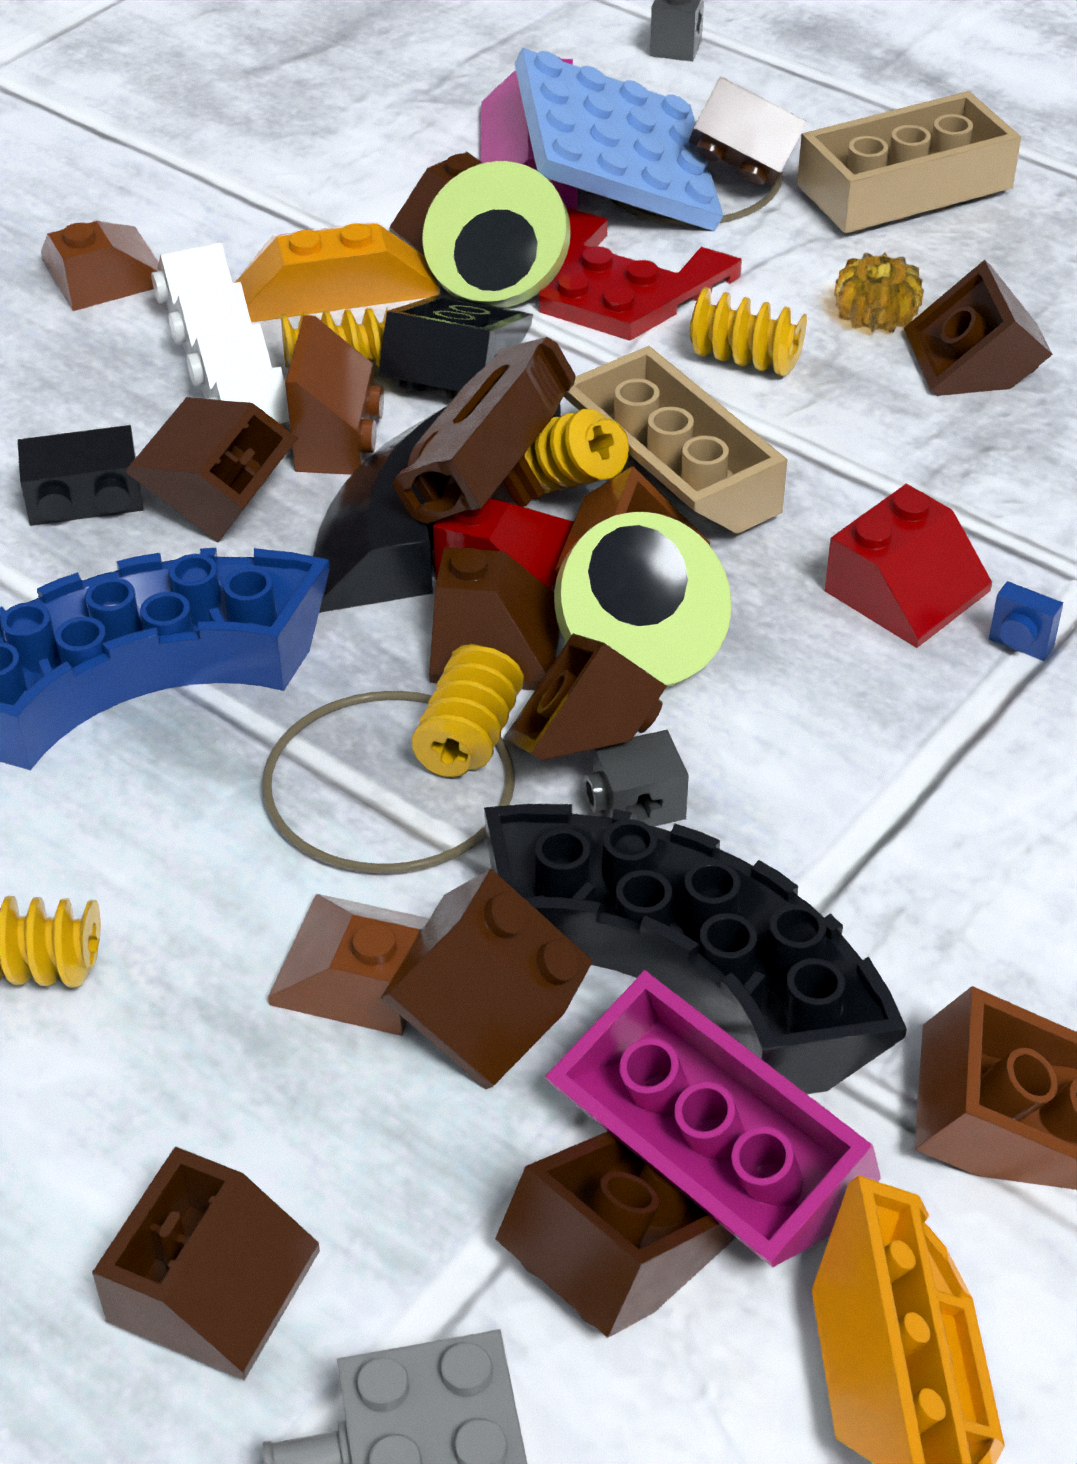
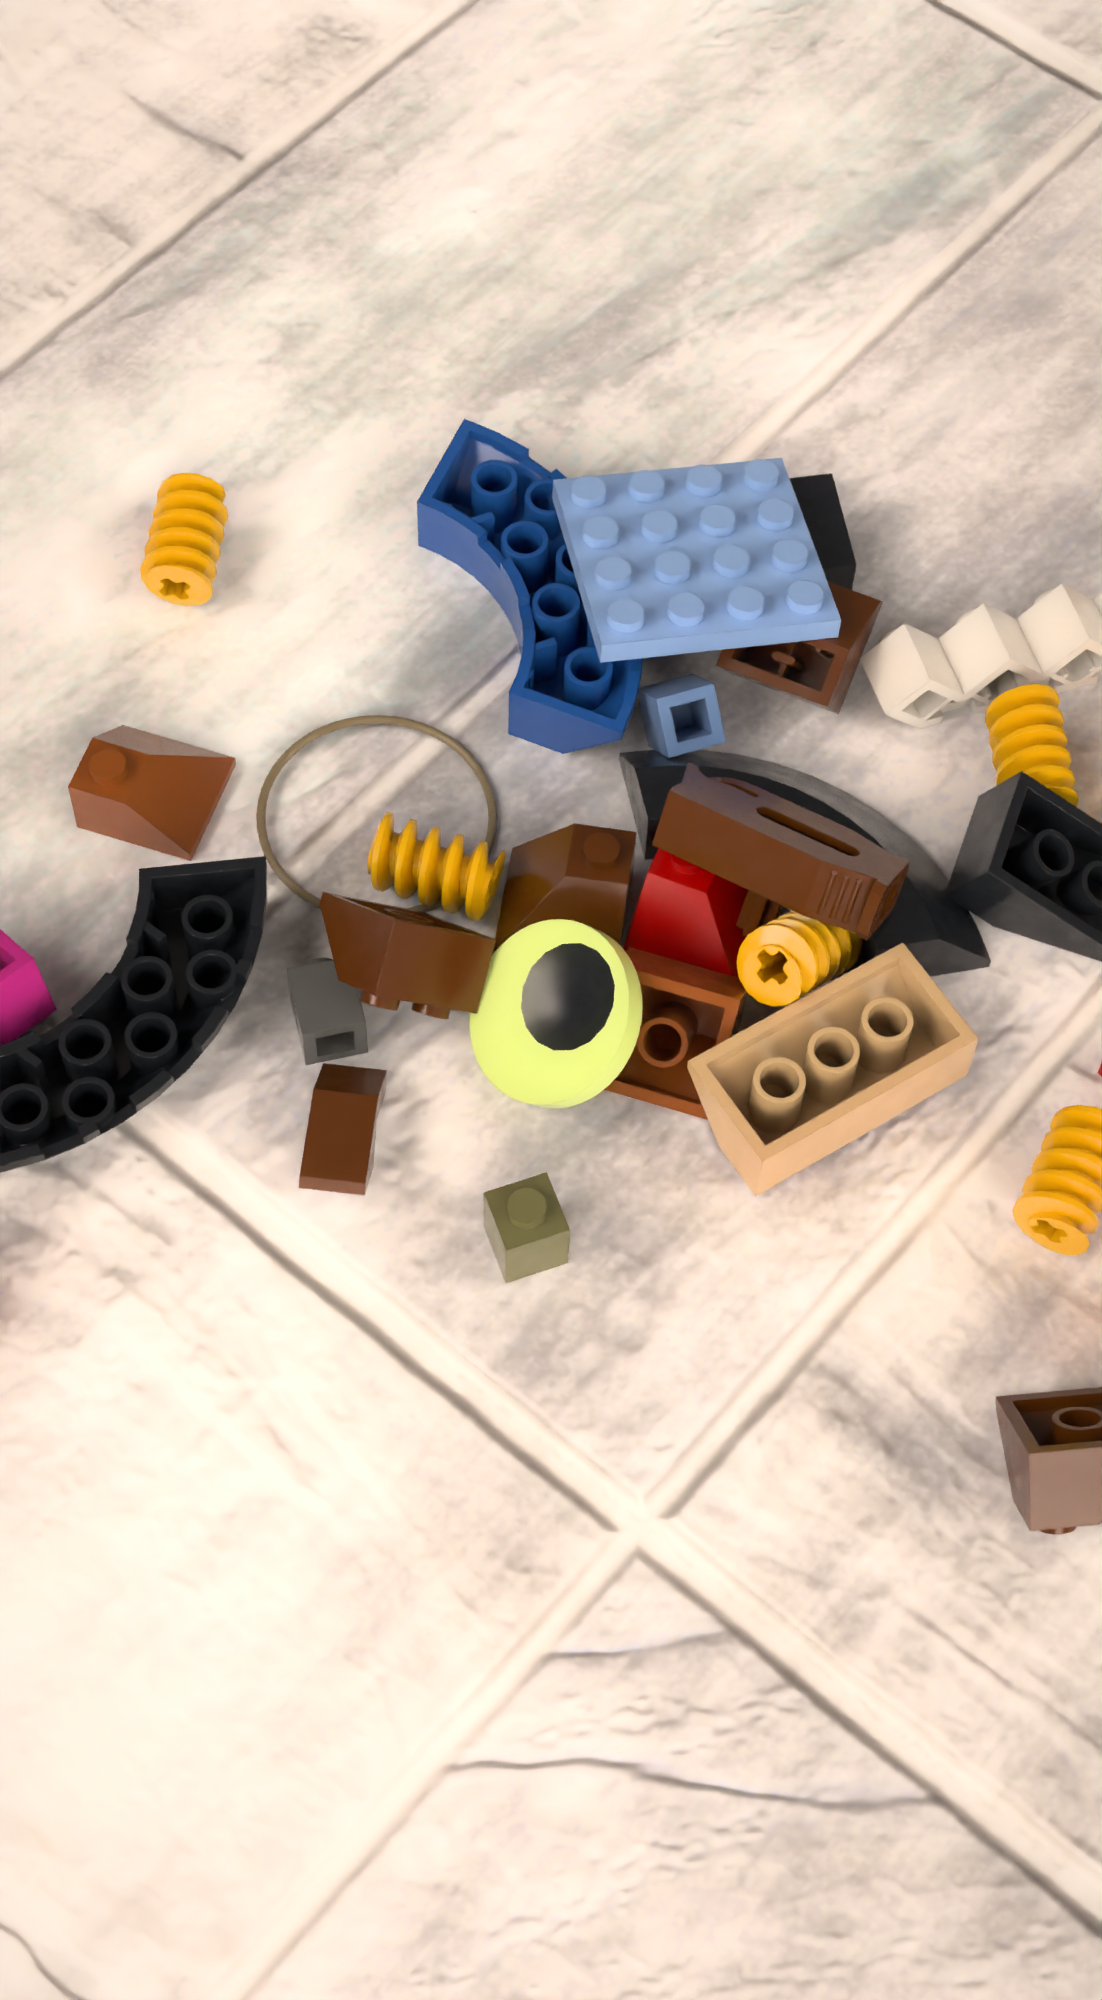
camera: 90 degrees right, 15 degrees up
(132, 502) = (694, 560): none -> light blue plate
(295, 526) = (681, 715): none -> medium blue brick
(331, 401) = (909, 738): dark orange slope -> none
(486, 977) = (80, 859): reddish brown slope -> none
(787, 758) = (342, 1129): none -> reddish brown slope
(854, 630) = (526, 1227): none -> olive brick
(906, 566) = (634, 1302): red slope -> none
(1025, 620) = (536, 1409): blue plate -> none

